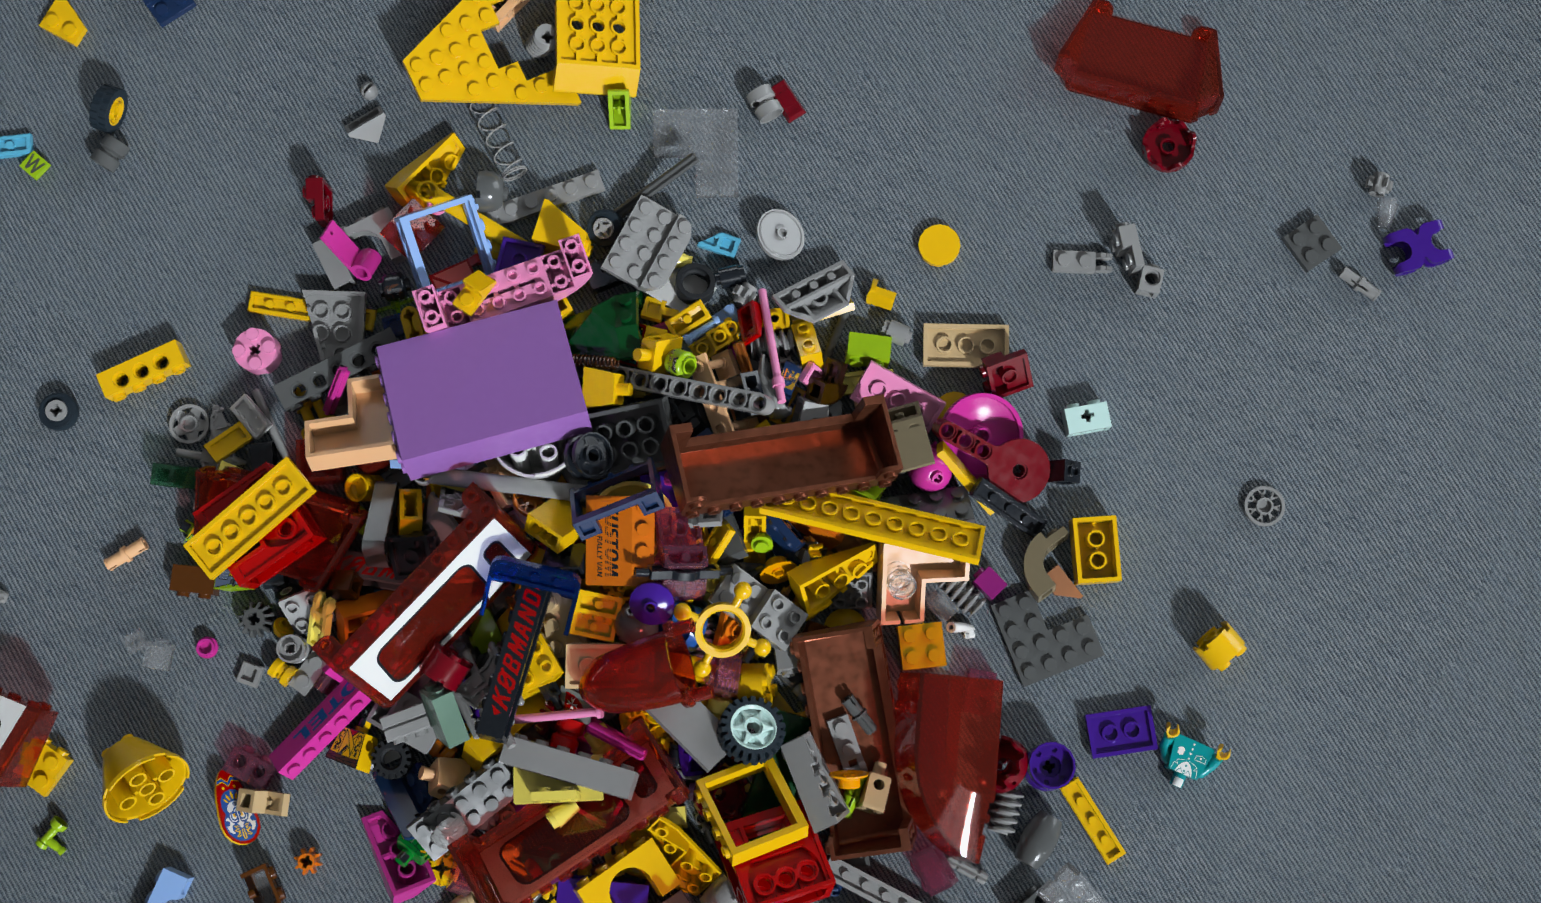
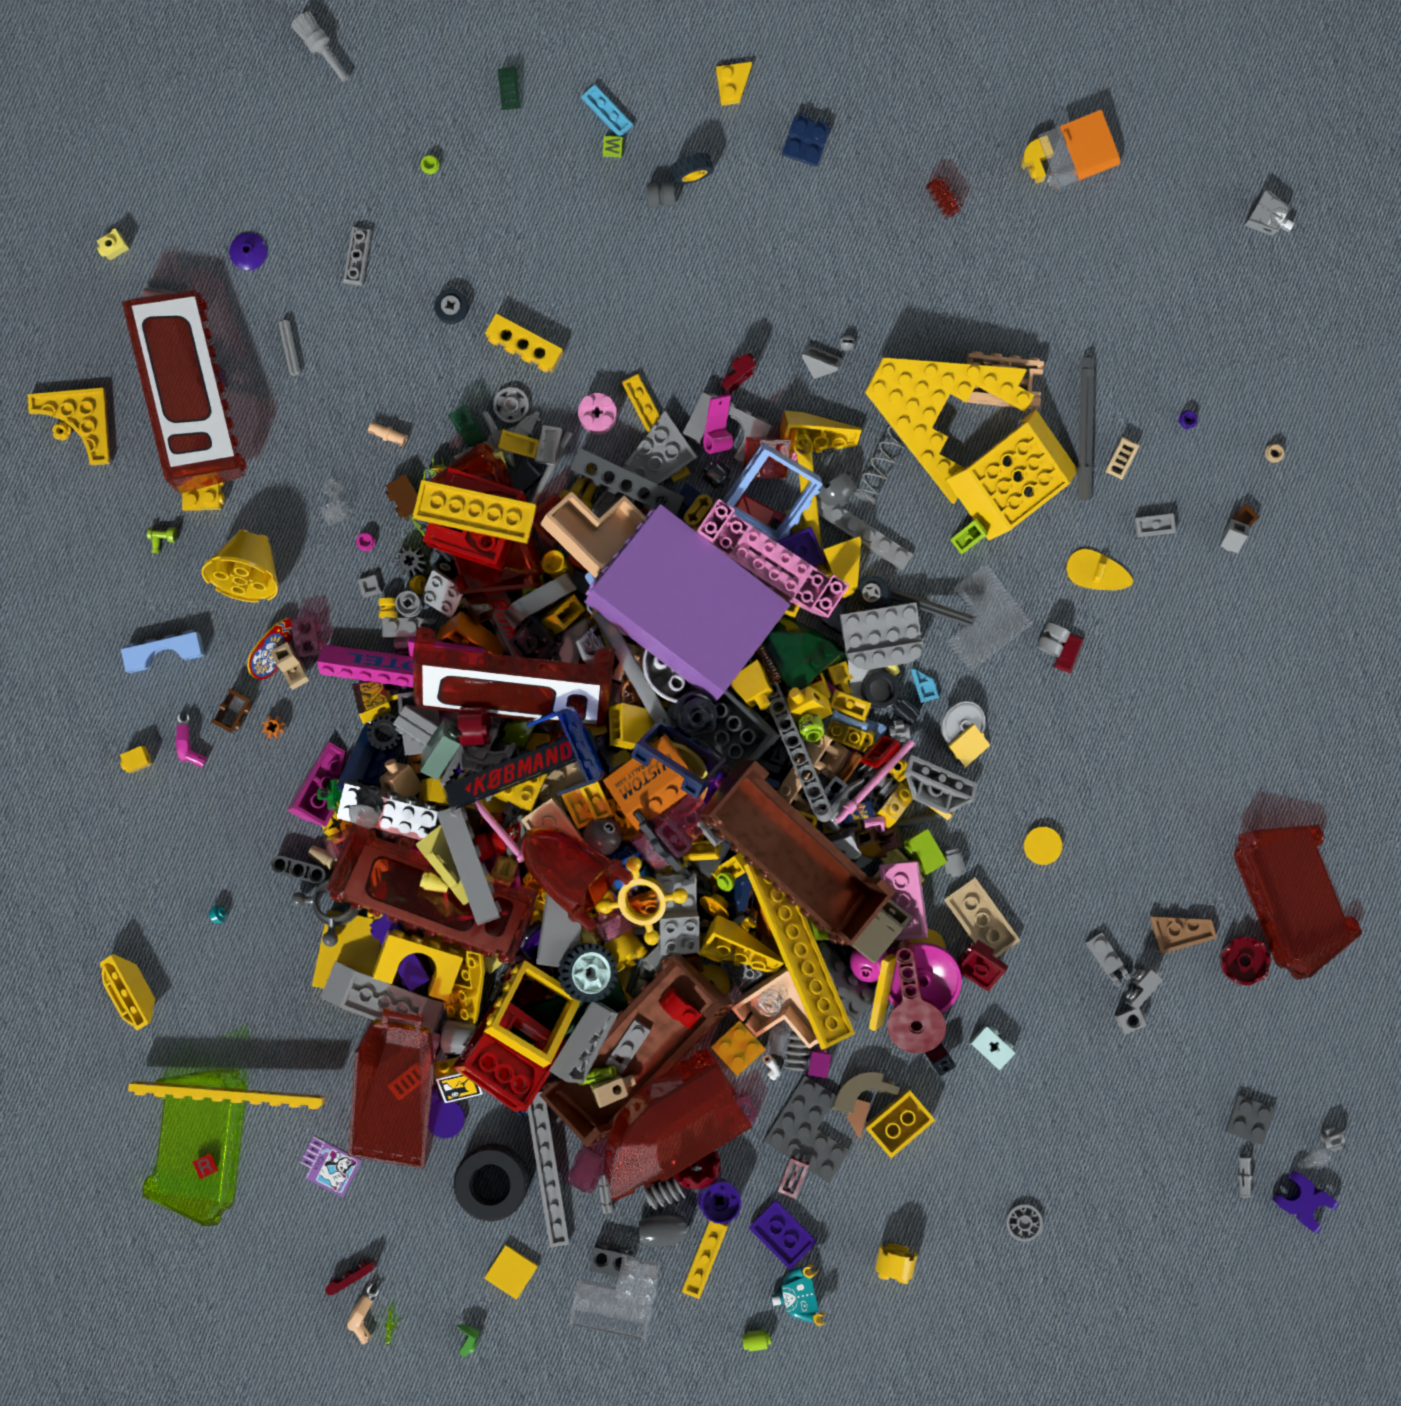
camera: 55 degrees right, 5 degrees up
(320, 617) = (441, 610): light yellow hinge -> none
(336, 390) = (610, 495): dark pink axle -> none
(395, 305) = (704, 485): clear neon green piece -> none
(474, 292) = (751, 541): yellow slope -> none
(541, 41) = (977, 441): light grey piece -> none
(617, 740) = (511, 883): dark pink axle -> none
(653, 594) = (630, 838): dark purple dish -> none
(734, 26) = (1096, 571): none -> yellow shield
(802, 243) = (969, 745): none -> yellow piece
(845, 671) = (679, 1008): none -> red brick
(848, 778) = (605, 1065): light orange piece -> none
(859, 714) = (656, 1039): dark grey axle -> none
(879, 296) = (971, 830): yellow tile -> none
(1007, 507) = (883, 1037): black tile -> none
(1066, 668) = (798, 1162): none -> tile
(1103, 183) = (1181, 932): none -> medium nougat wing
(1201, 827) = (756, 1340): none -> lime brick

